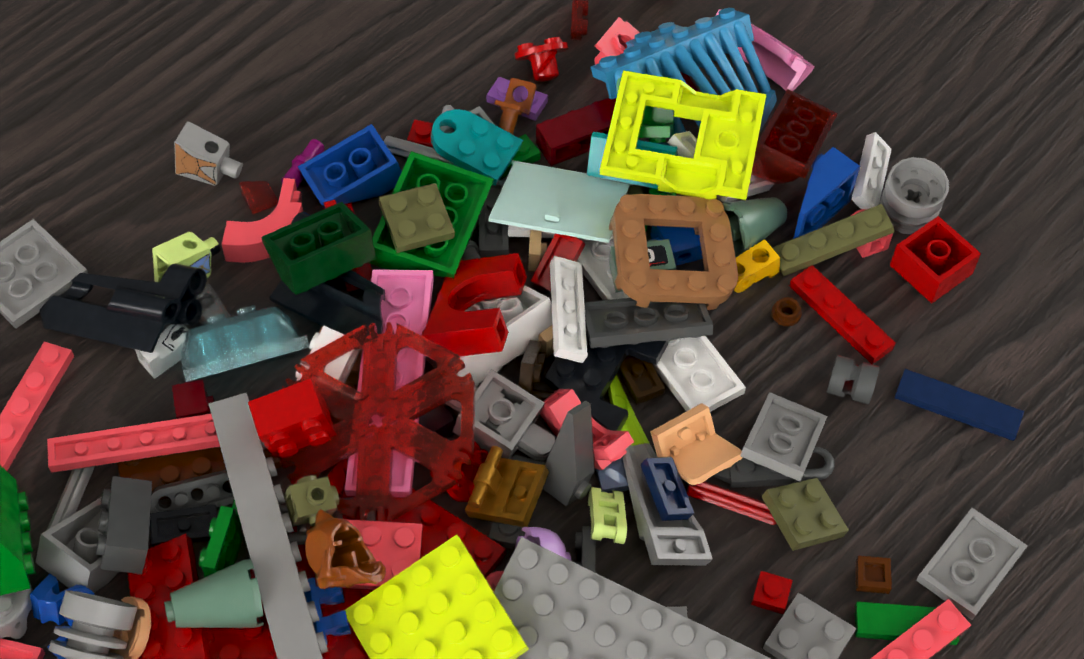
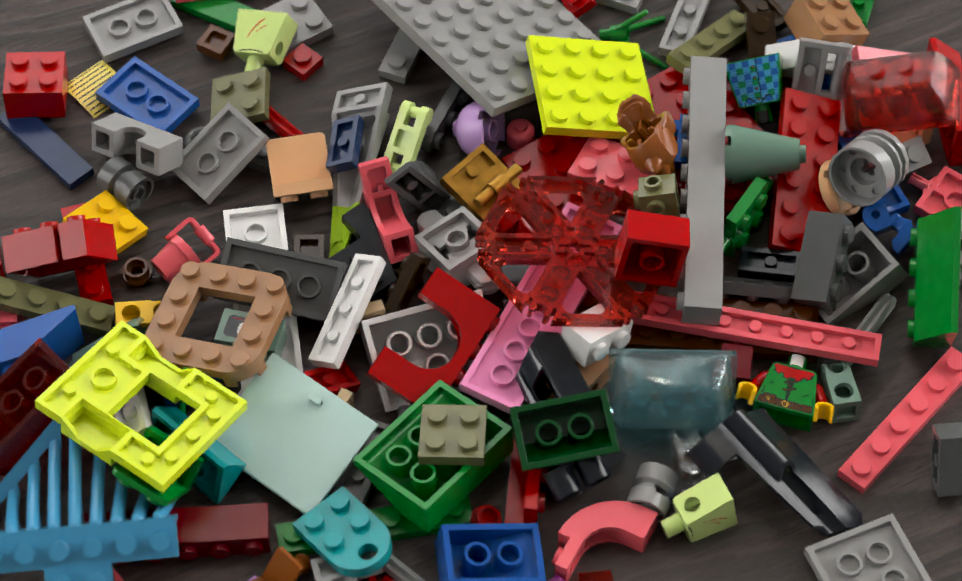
camera: 155 degrees left, 0 degrees up
(82, 414) = (841, 391): none -> sand green leg
(133, 394) = (788, 394): none -> torso
(234, 269) = (654, 487): none -> light grey wheel
(368, 209) = (485, 515): none -> red plate
(754, 333) = (177, 251): none -> coral piece
(826, 584) = (263, 37): none -> yellowish green torso
(839, 406) = (154, 148): none -> light grey arch
(840, 330) = (126, 226): none -> yellow plate
(855, 268) = (59, 247): none -> piece
(897, 483) = (147, 96): none -> blue plate
(956, 486) = (87, 83): none -> light yellow sticker
(1010, 444) = (35, 84): none -> red brick

